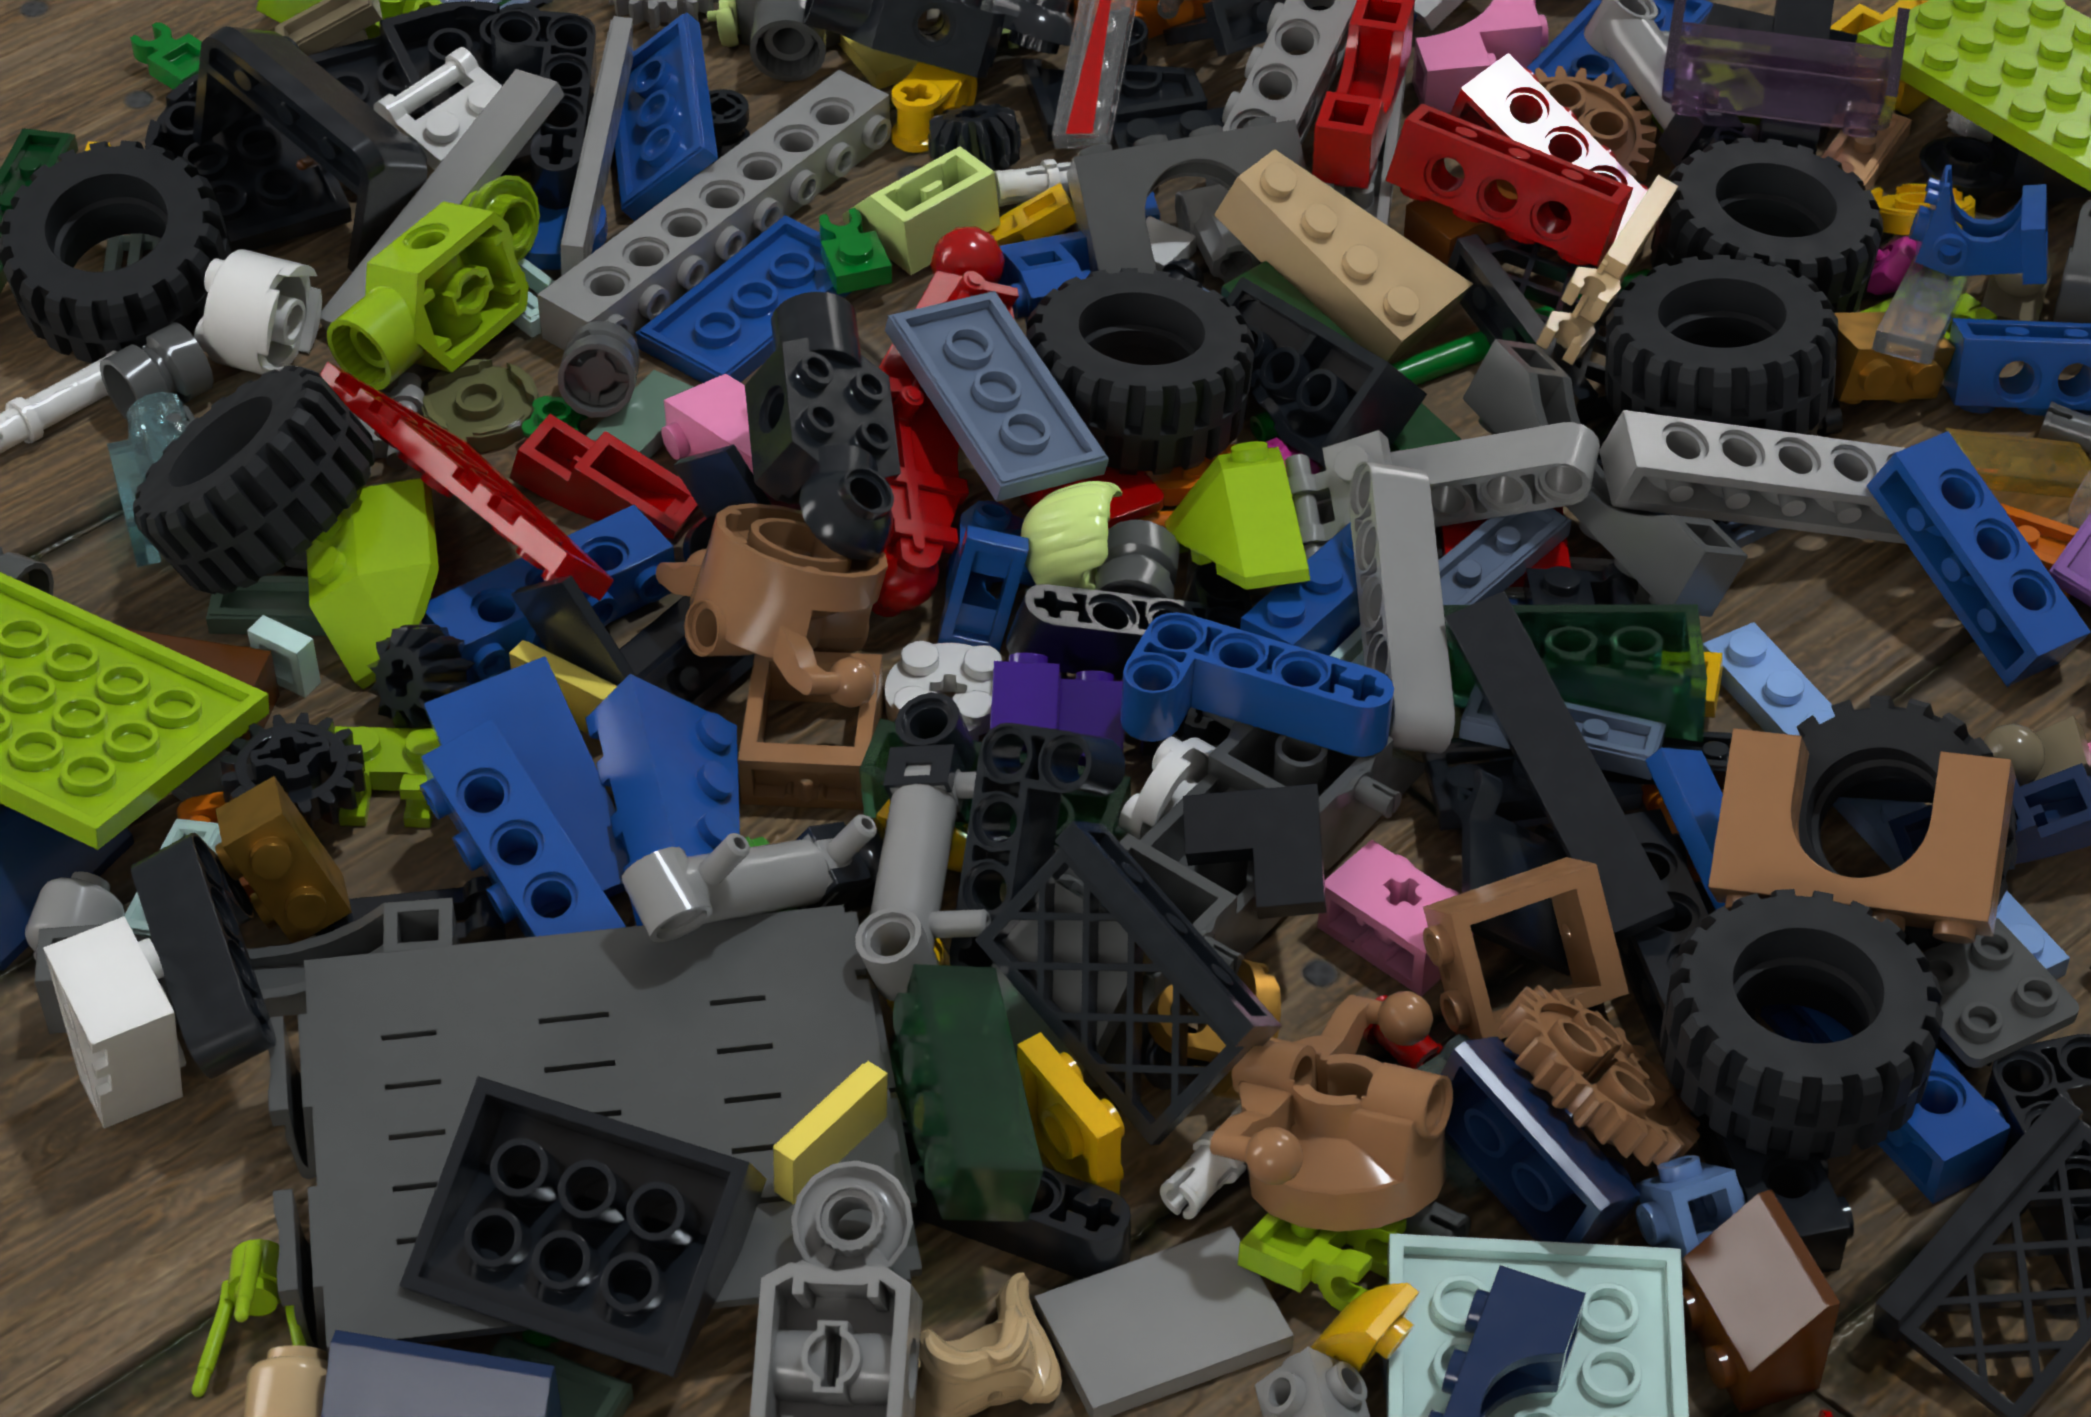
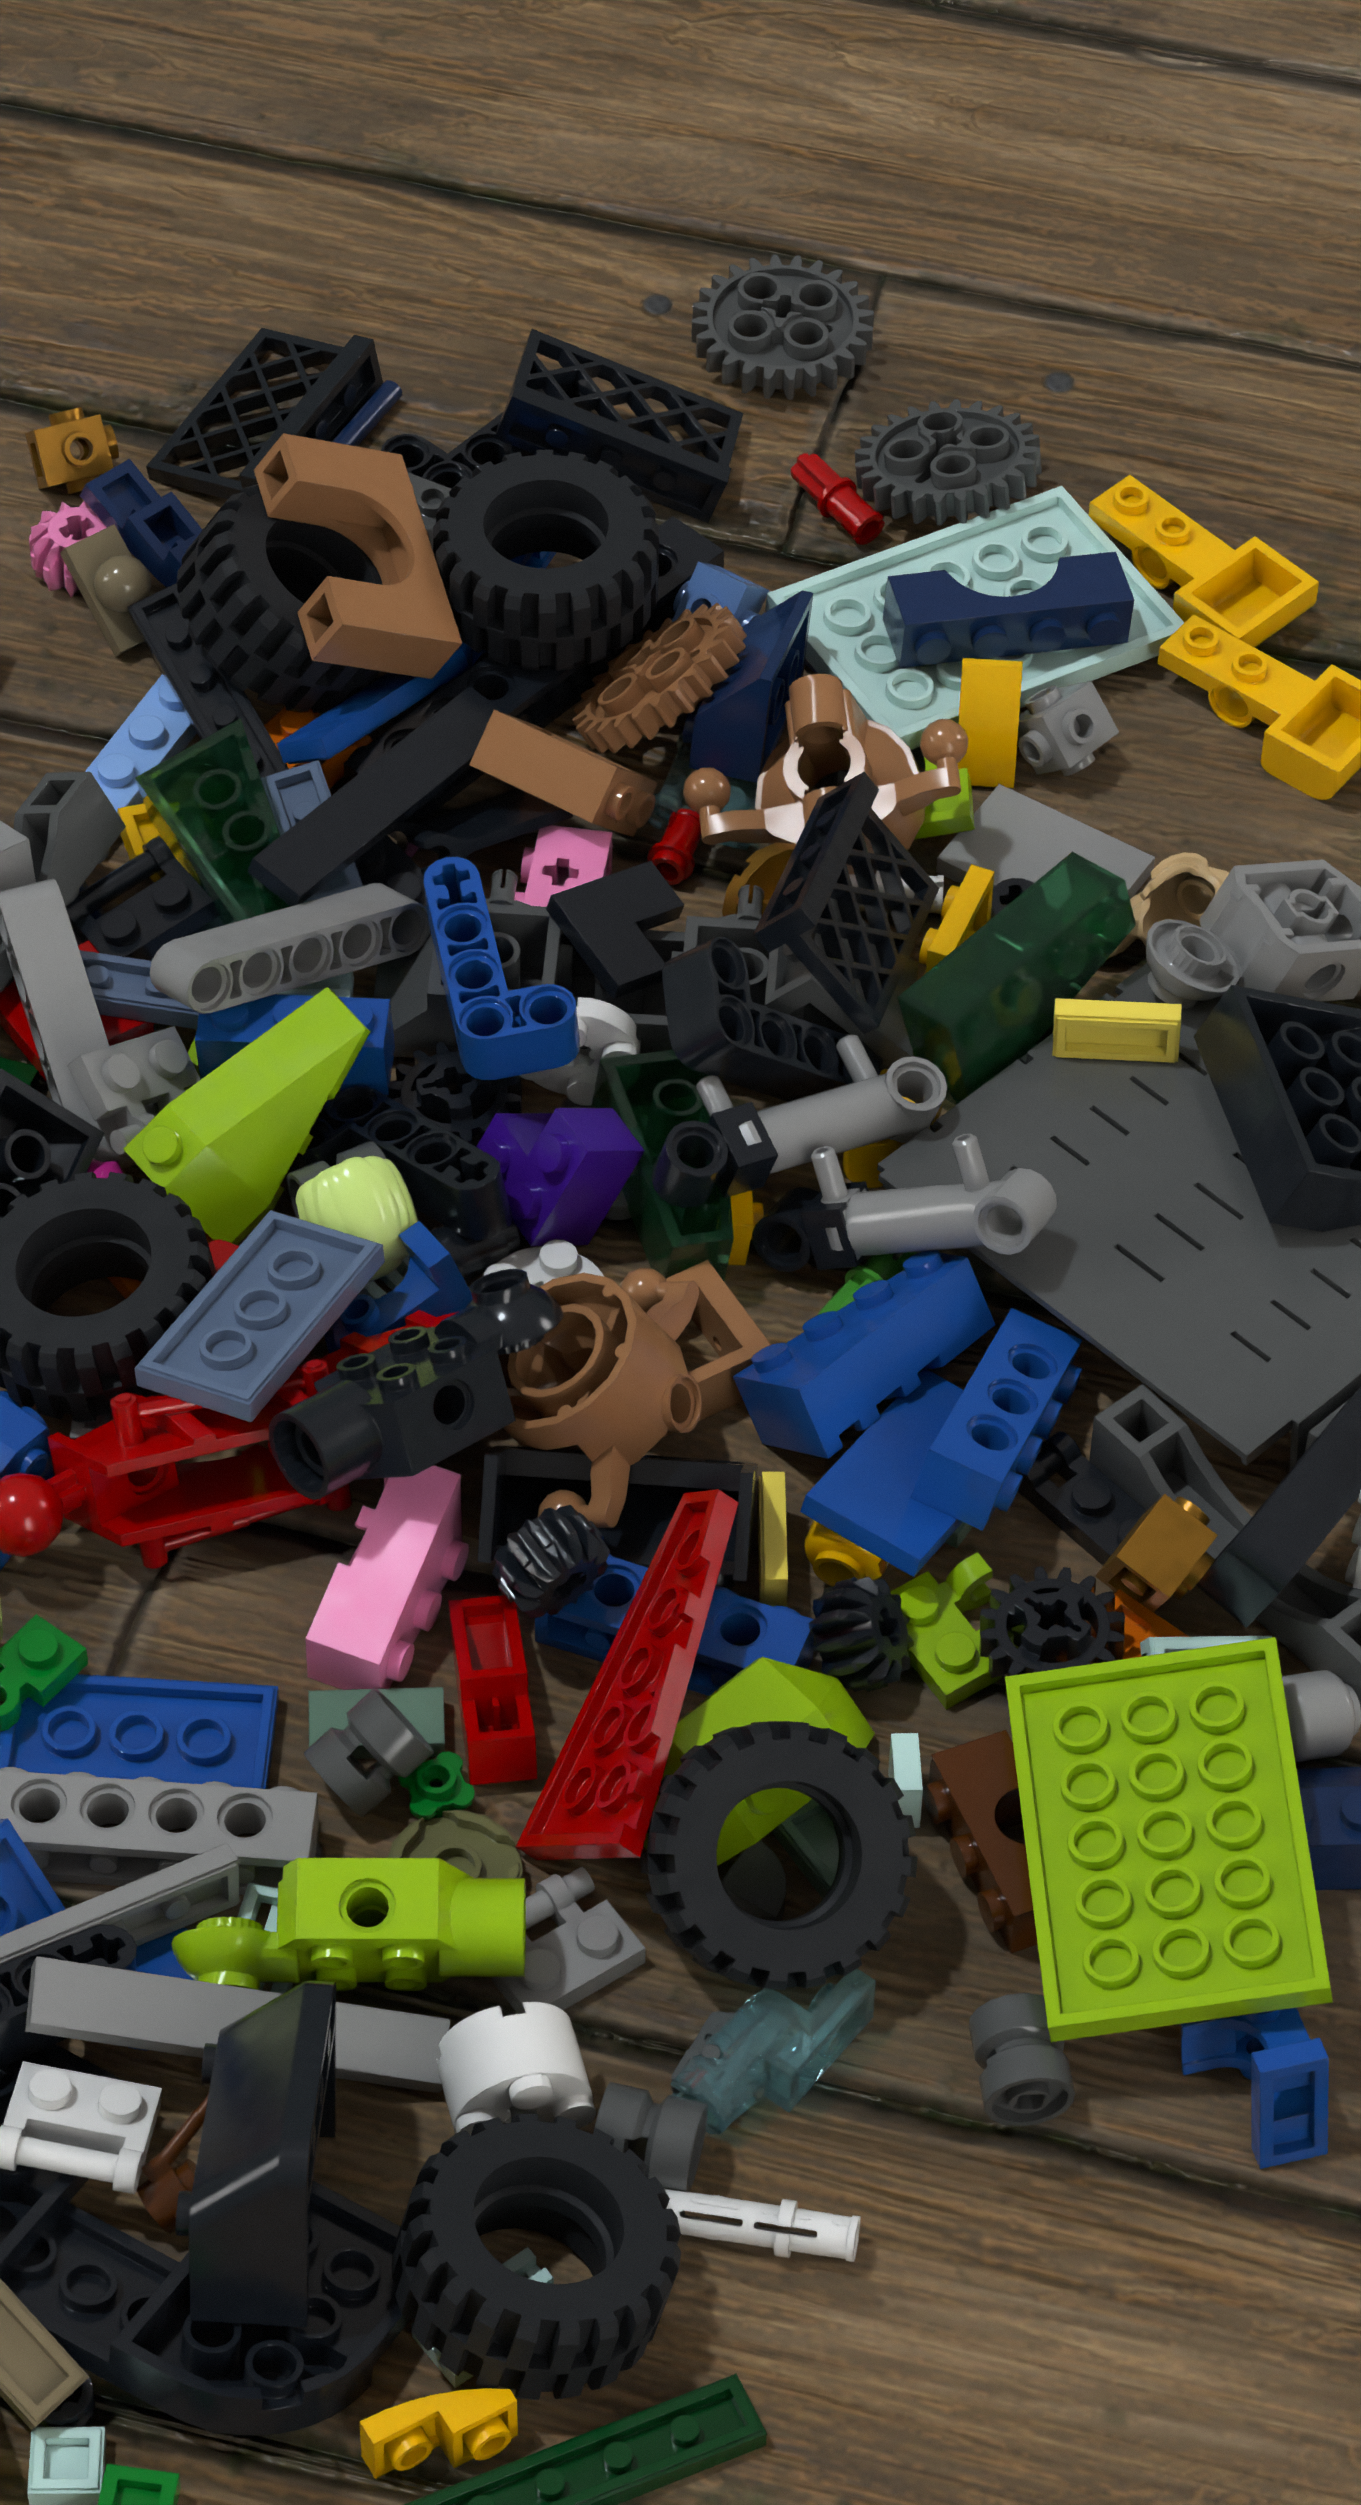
camera: 125 degrees left, 5 degrees up
(628, 480) = (550, 1561): none -> black gear
(1759, 1306) = (781, 528): slope -> none

